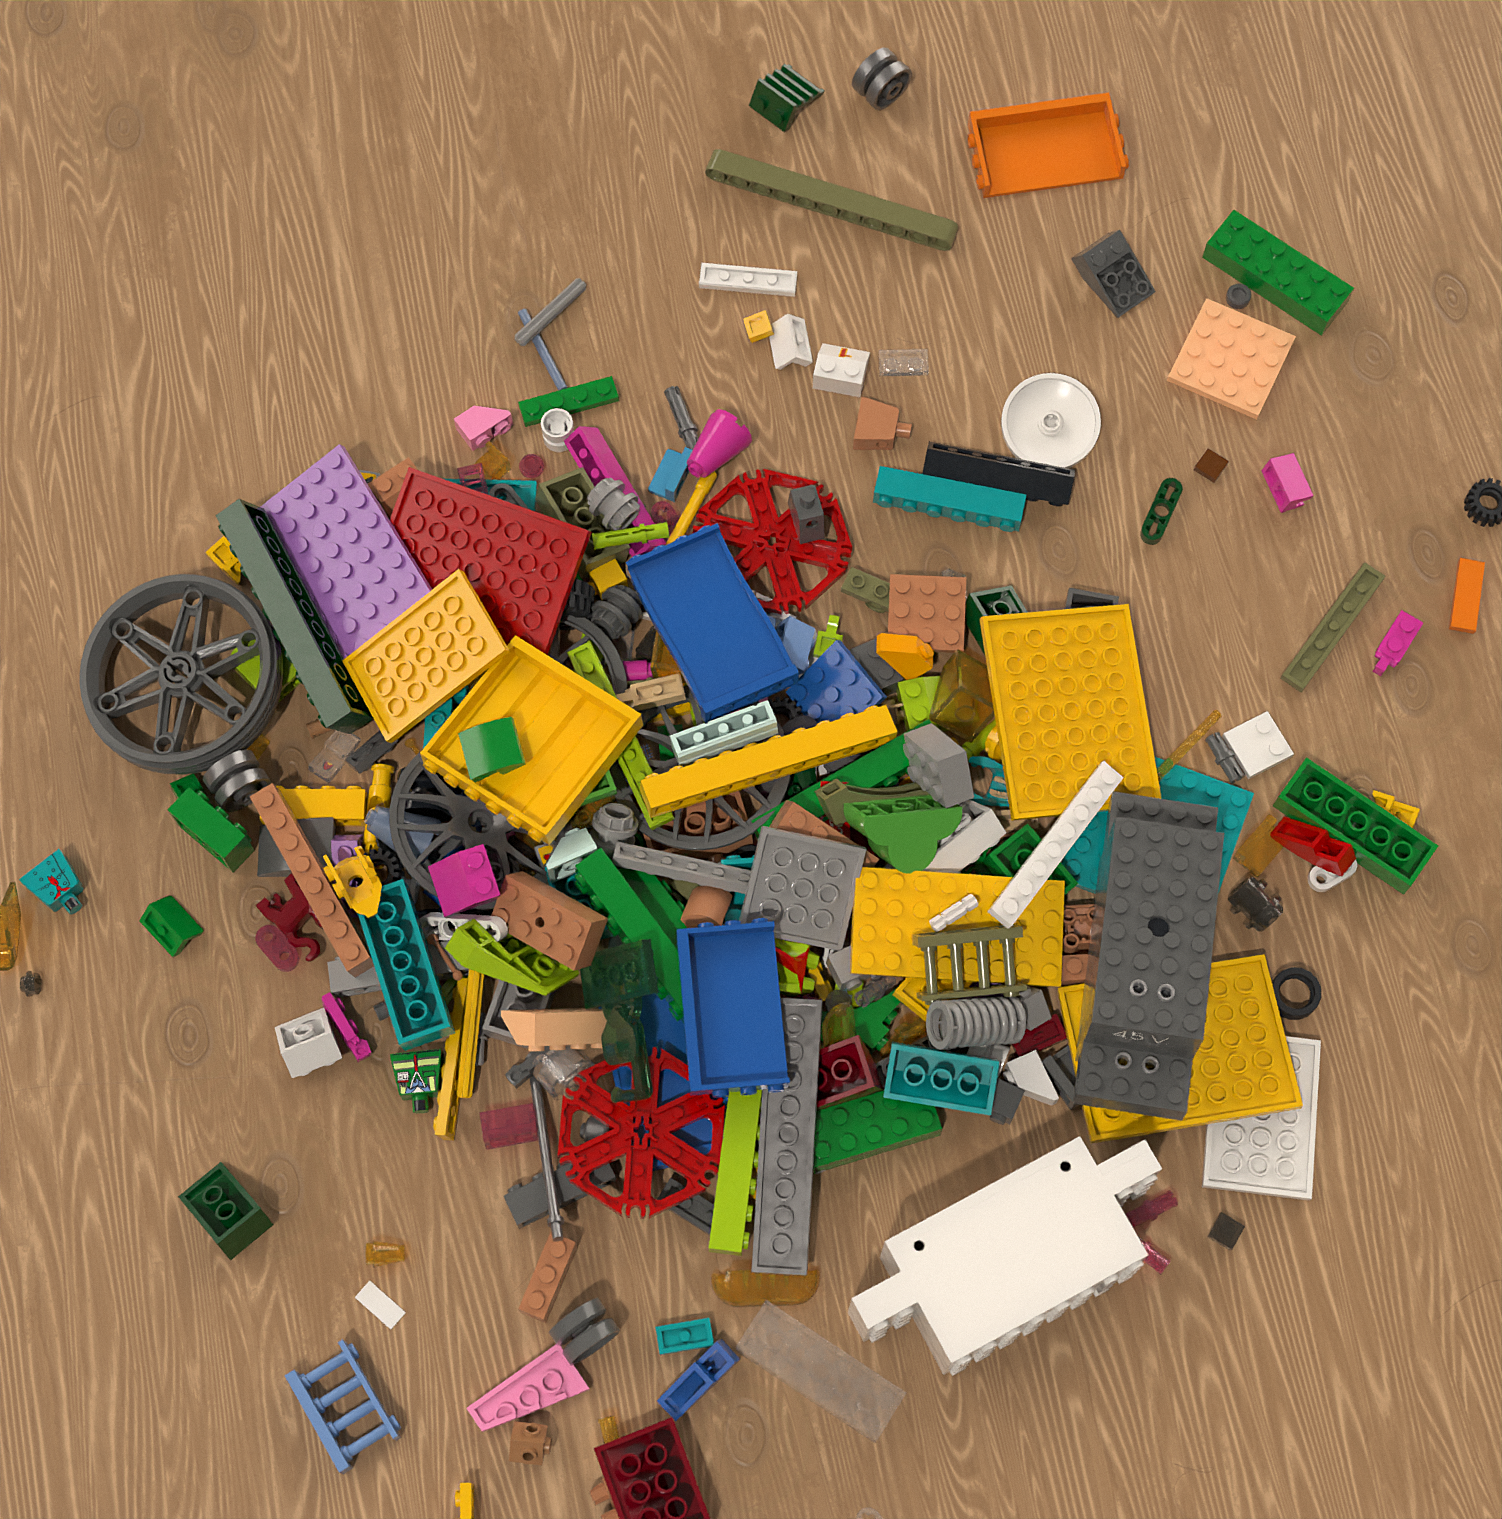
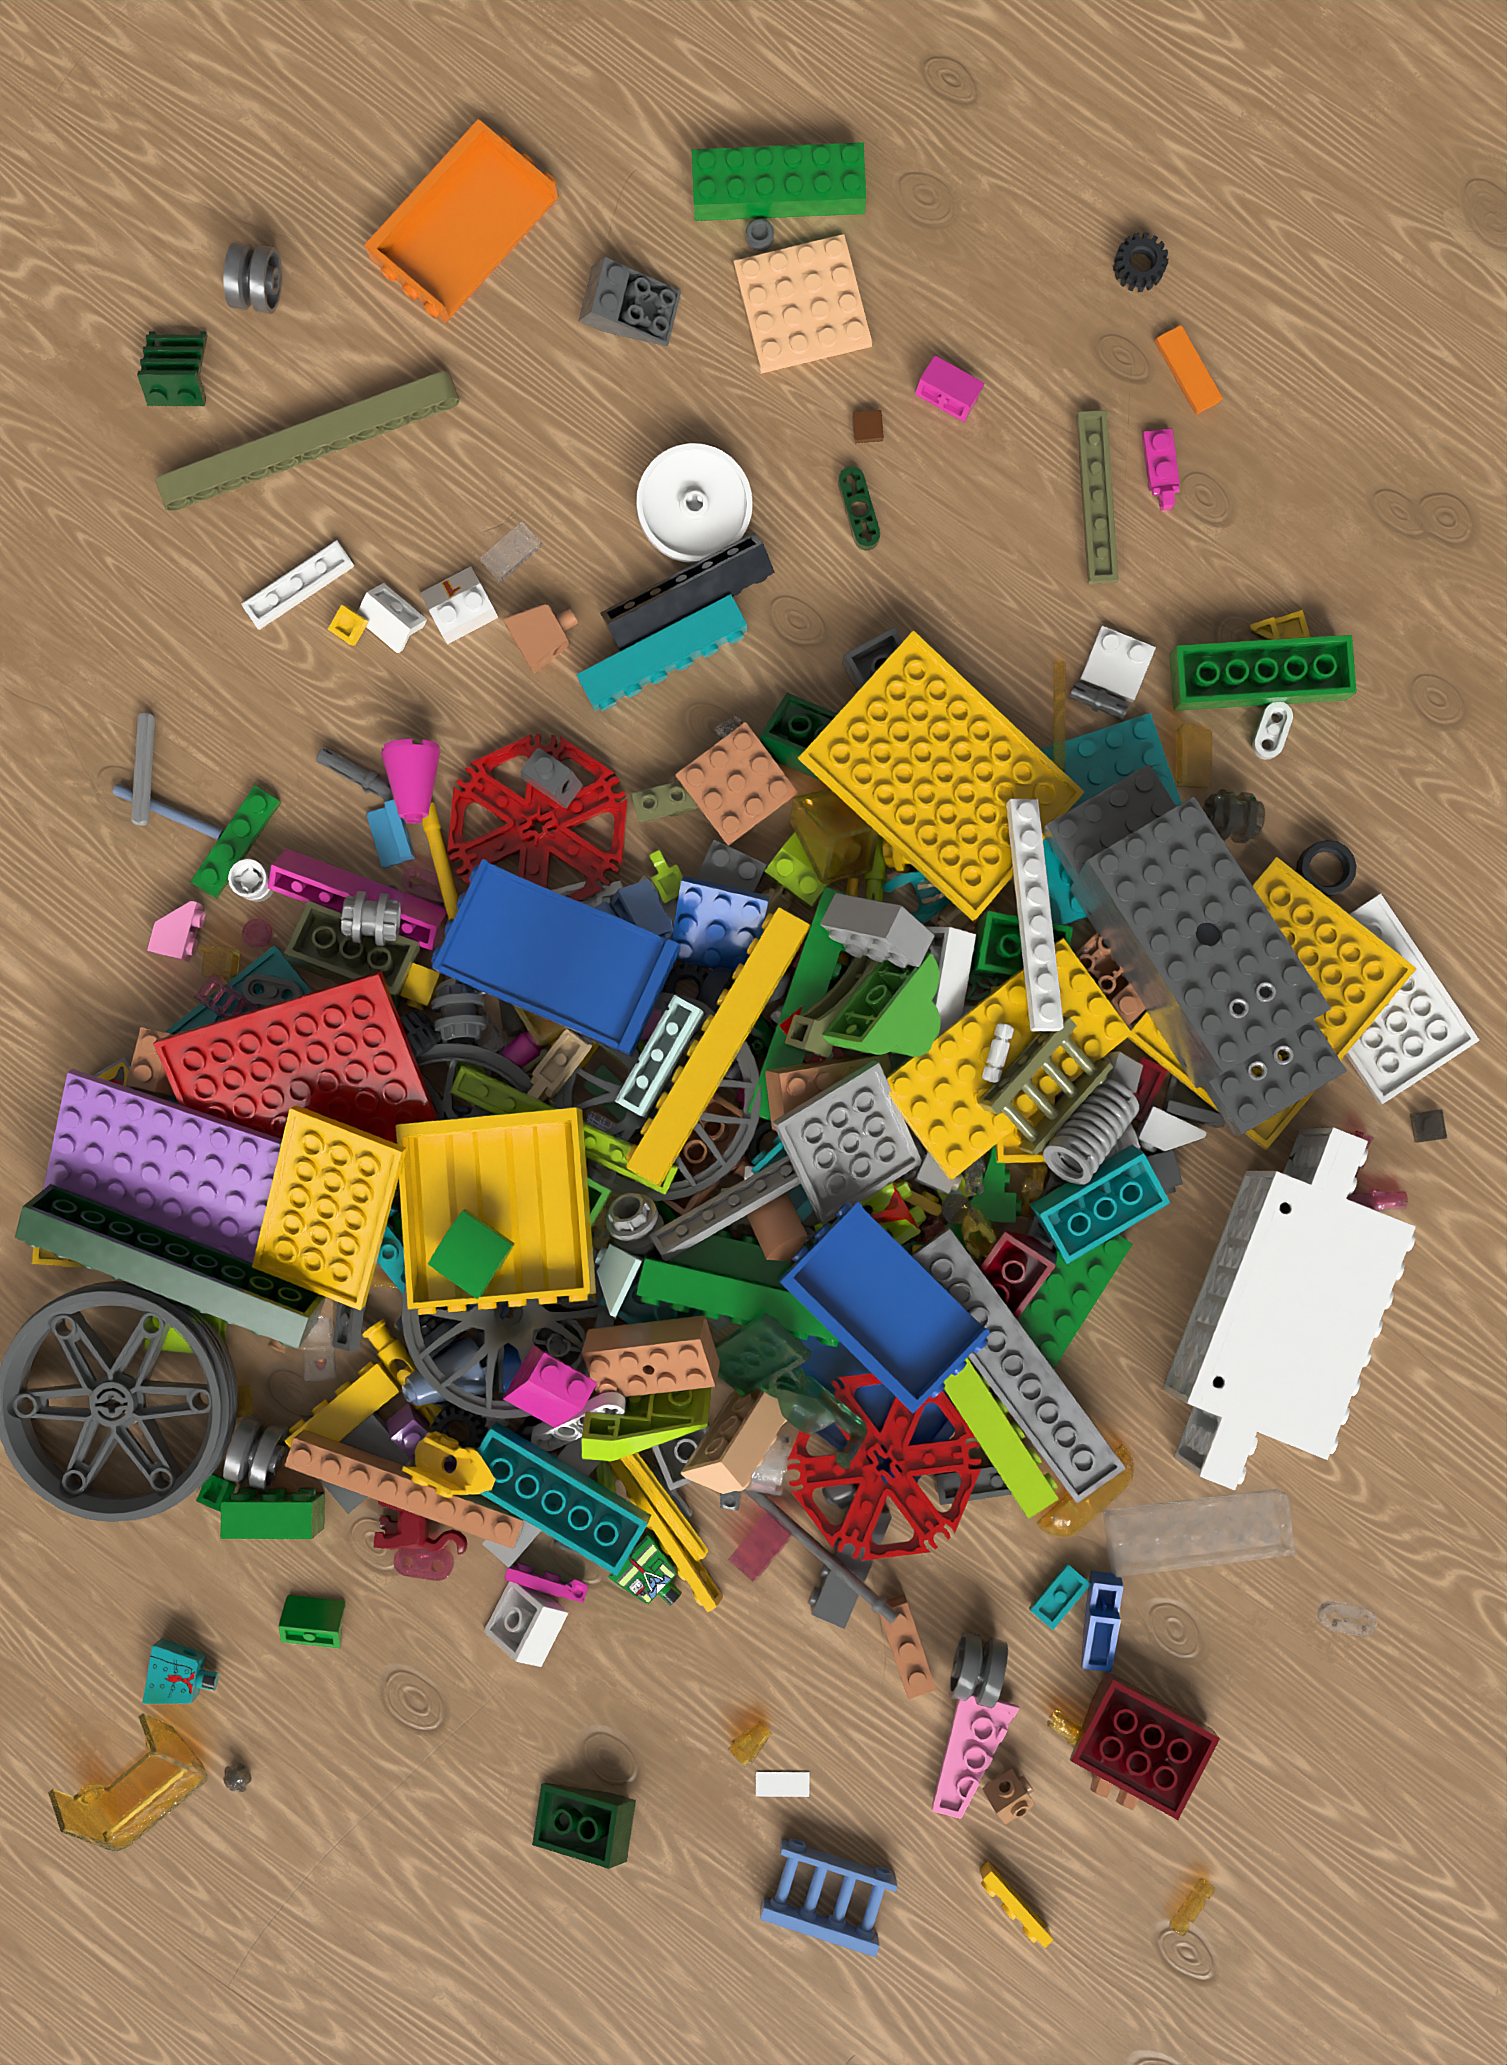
camera: 40 degrees left, 15 degrees up
(433, 940) = (559, 1450): nougat hinge -> none
(630, 535) = (421, 924): lime pin -> none
(905, 654) = (751, 840): light orange slope -> none
(1314, 845) = (1241, 720): red slope -> none

